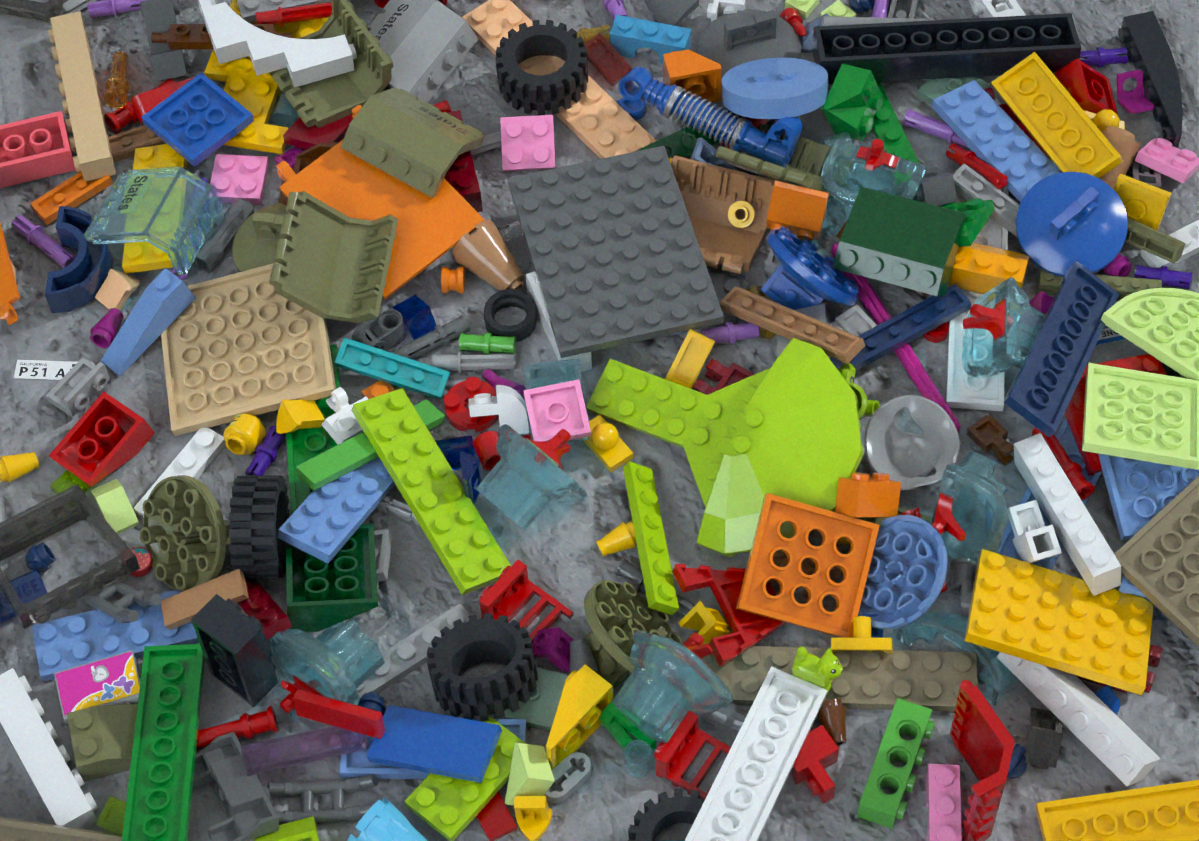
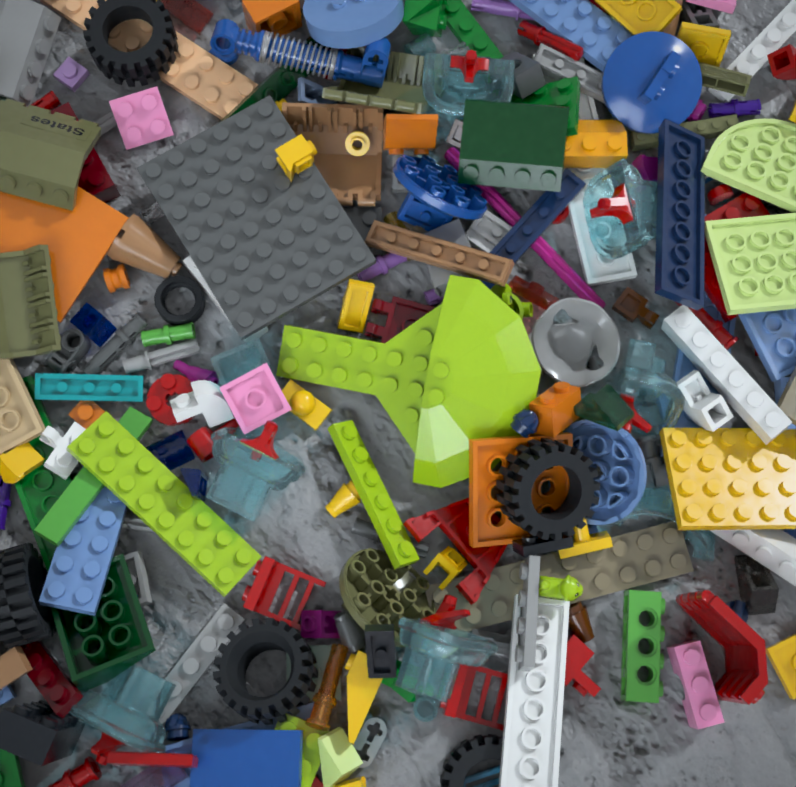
camera: 25 degrees left, 20 degrees up
(470, 92) = (71, 74): none -> lavender plate
(534, 710) = (324, 699): none -> clear orange pin
(607, 660) = (381, 651): none -> black plate
(671, 199) = (296, 156): none -> yellow window
(771, 689) = (527, 623): none -> light grey plate
(801, 578) = (523, 472): none -> black tyre
(828, 626) = (534, 545): none -> black plate
(829, 493) = (525, 422): none -> dark blue plate
(881, 393) = (532, 292): none -> clear red plate
(919, 501) = (605, 408): none -> clear green slope
(1119, 350) = (720, 194): none -> red tile

